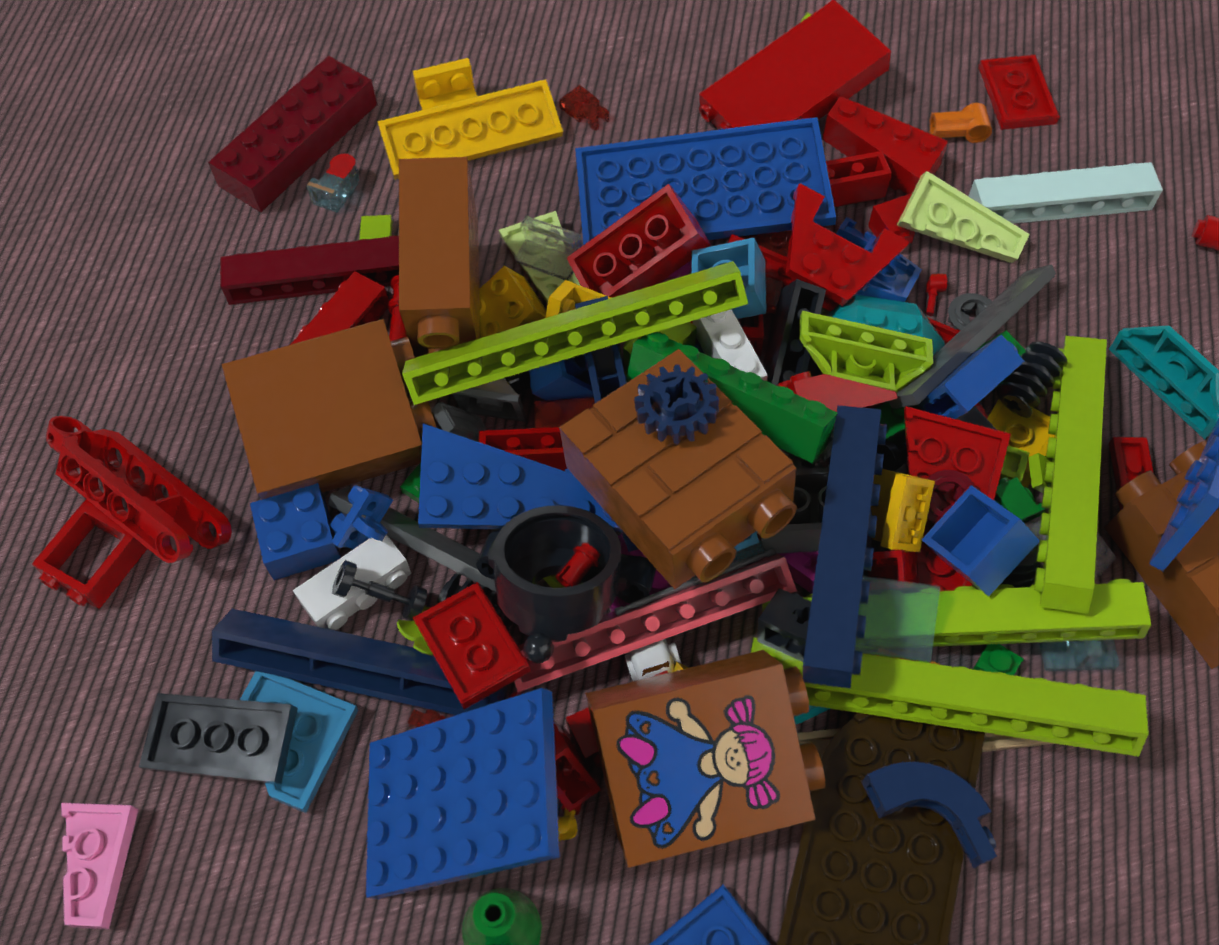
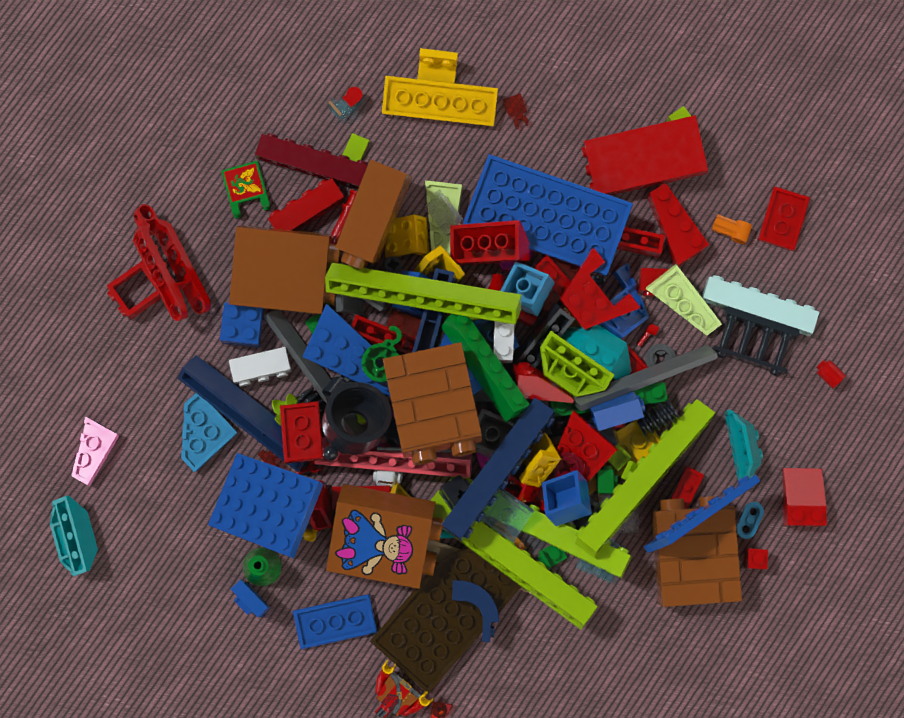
camera: 20 degrees right, 20 degrees up
(219, 738) = (167, 420): black plate -> none
(221, 340) = (243, 185): none -> flag
(293, 133) = (336, 55): dark red brick -> none
(352, 528) = (276, 340): blue hips -> none
(412, 603) = (256, 369): black wheel -> none
(544, 454) = (377, 351): none -> green piece
(579, 565) = (368, 419): red pin -> none
(678, 402) = (434, 382): dark blue gear -> none
(1096, 213) = (750, 322): none -> black fence

